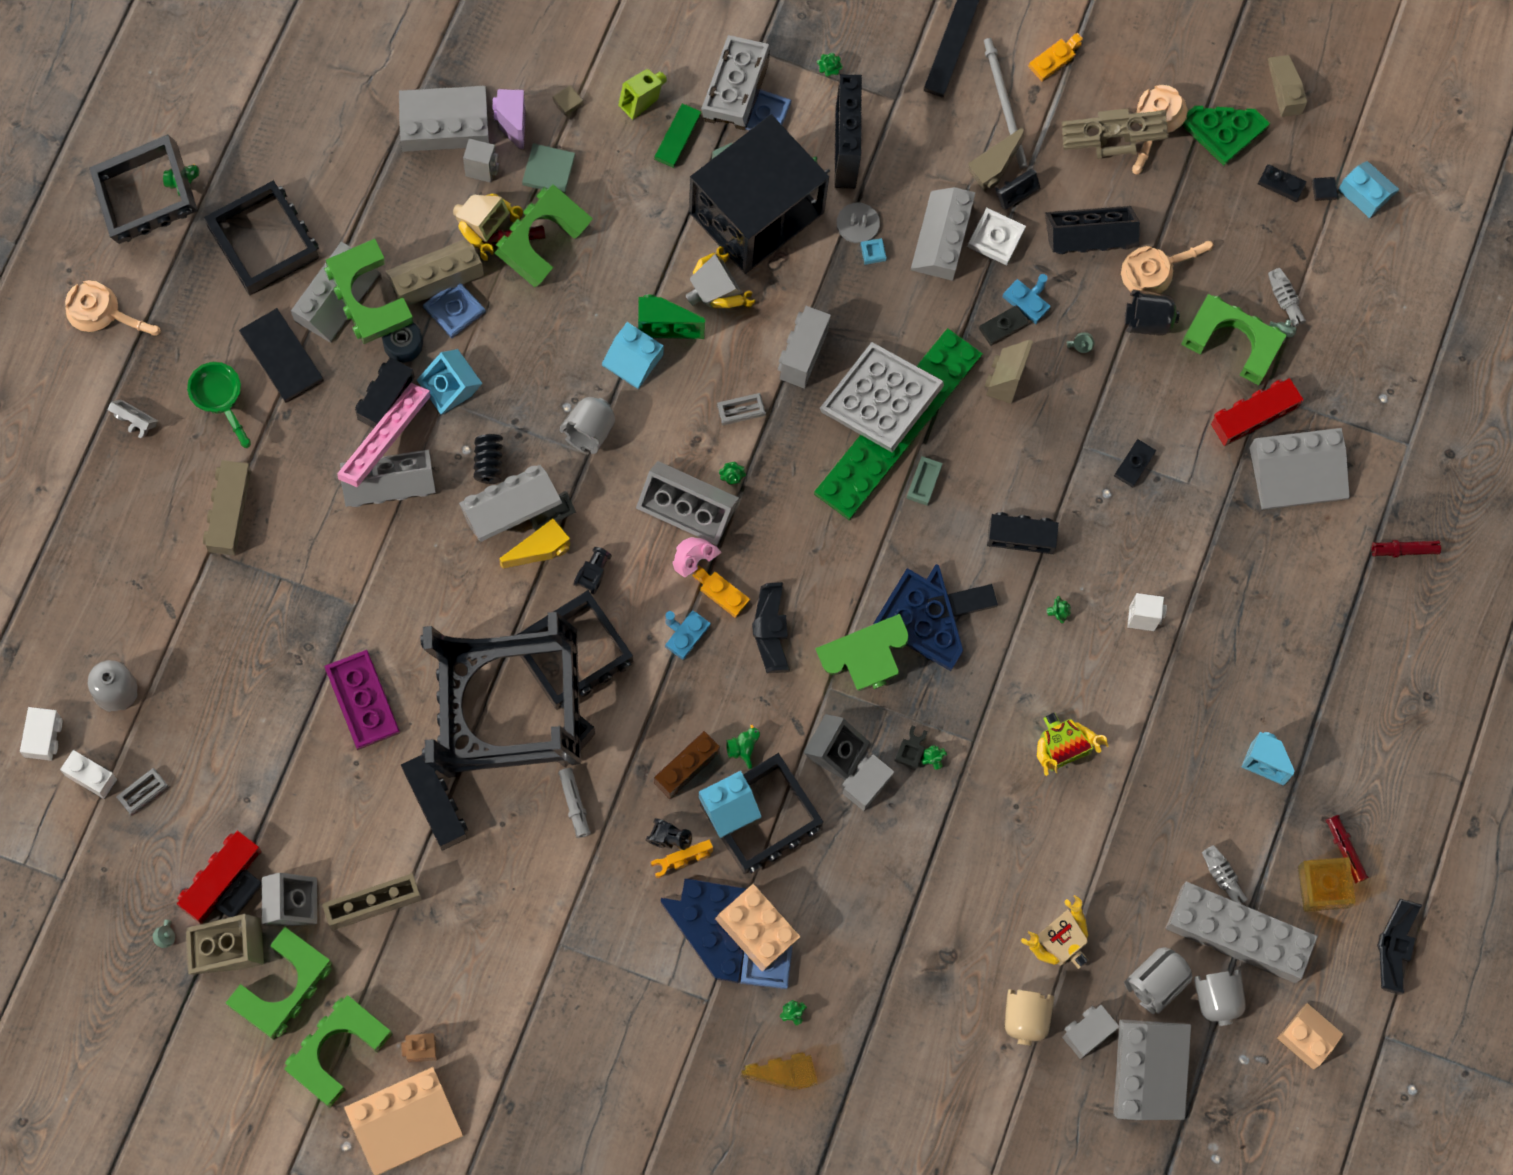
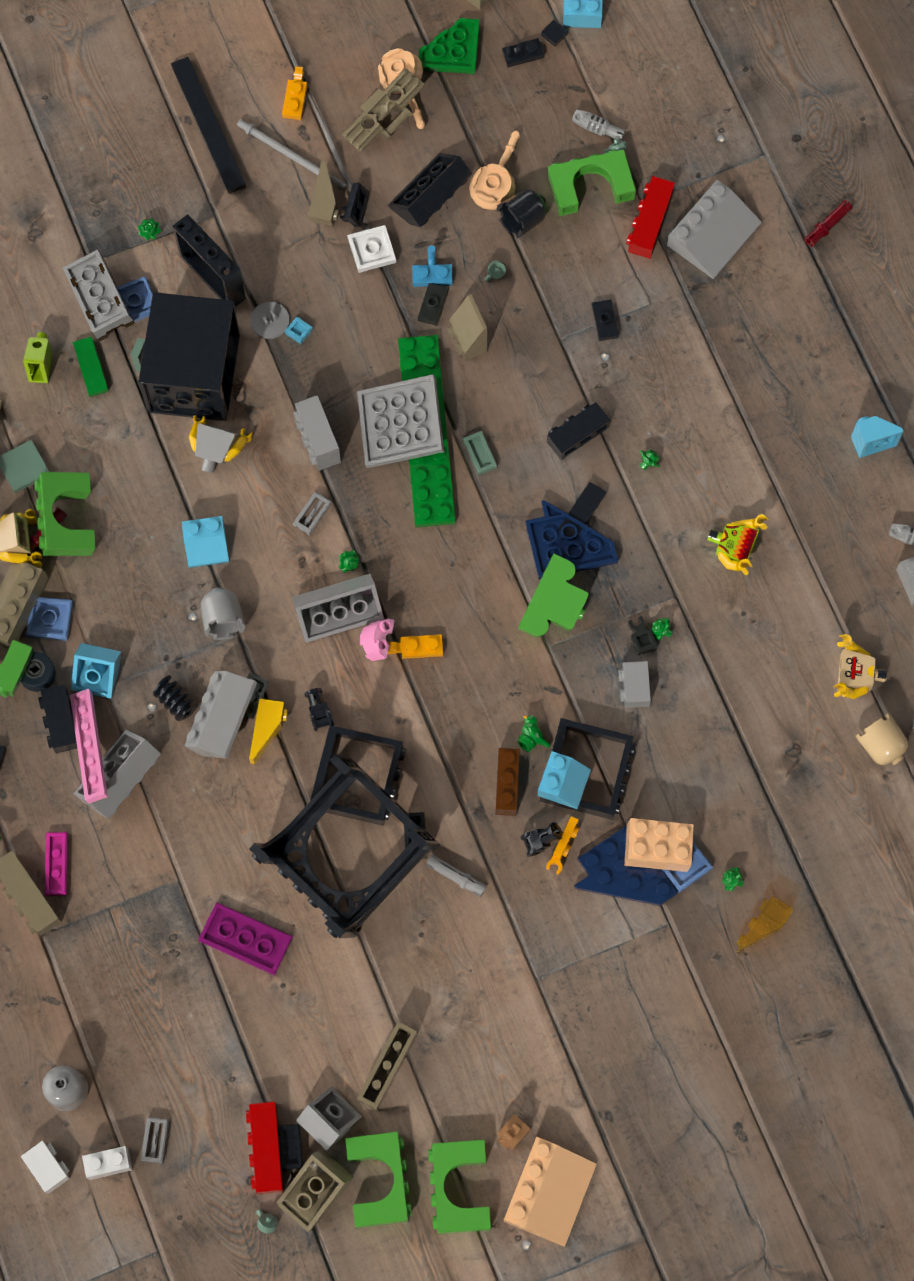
camera: 35 degrees left, 0 degrees up
(274, 506) = (56, 864): none -> dark pink tile
(434, 803) = (362, 961): black brick -> none
(667, 320) = (206, 496): green slope -> none
(685, 634) = (421, 695): dark azure plate -> none
(770, 628) = (473, 641): black plate -> none
(836, 746) = (592, 679): dark grey slope -> none
(943, 232) = (334, 276): light grey slope -> none
(1146, 612) = (707, 410): white brick -> none

